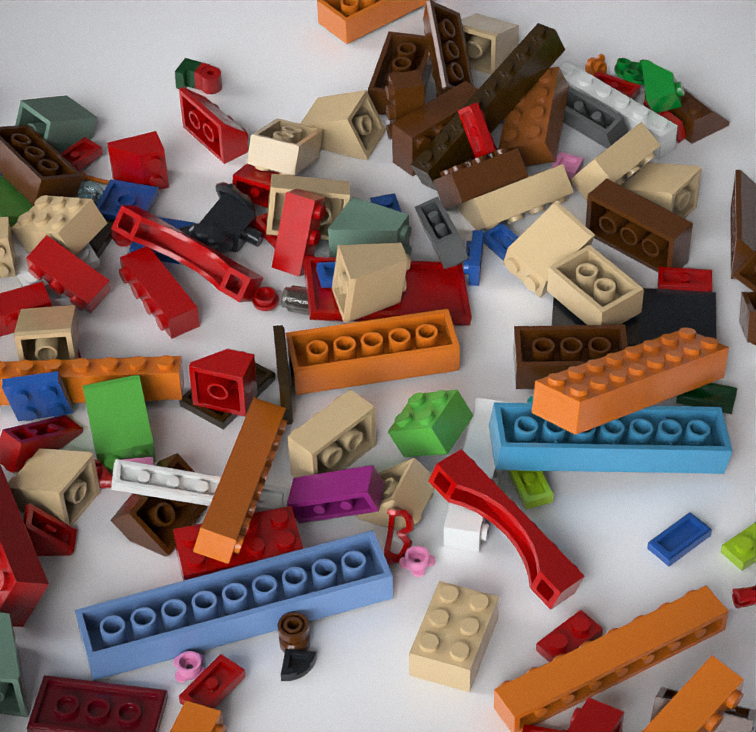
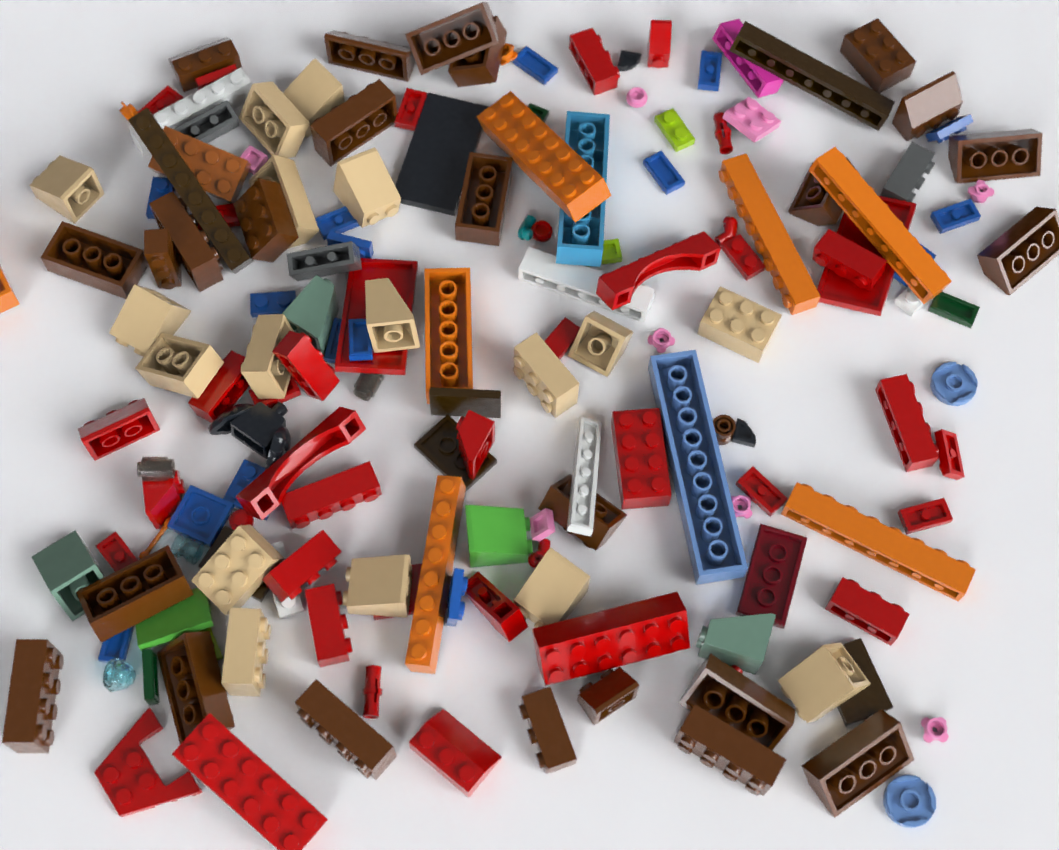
camera: 85 degrees left, 20 degrees up
(48, 533) = (599, 598): red slope -> none
(149, 134) = (156, 469): none -> clear smoke brick
(198, 76) = (30, 436): leg -> none
(241, 482) = (590, 439): orange brick -> none
(265, 299) = (361, 409): red plate -> none
(336, 494) = (601, 379): magenta brick -> none
(386, 456) = (562, 337): none -> red tile
(402, 534) = (636, 342): red helmet -> none
(430, 423) = (540, 303): bright green brick -> none
(446, 47) = (101, 214): reddish brown slope -> none
(476, 130) = (228, 203): red plate -> none
(594, 288) = (423, 165): tan brick -> none
(606, 618) = (730, 230): none -> red arm
(630, 70) = (145, 84): green dish -> none
(661, 88) = (199, 63): green slope -> none

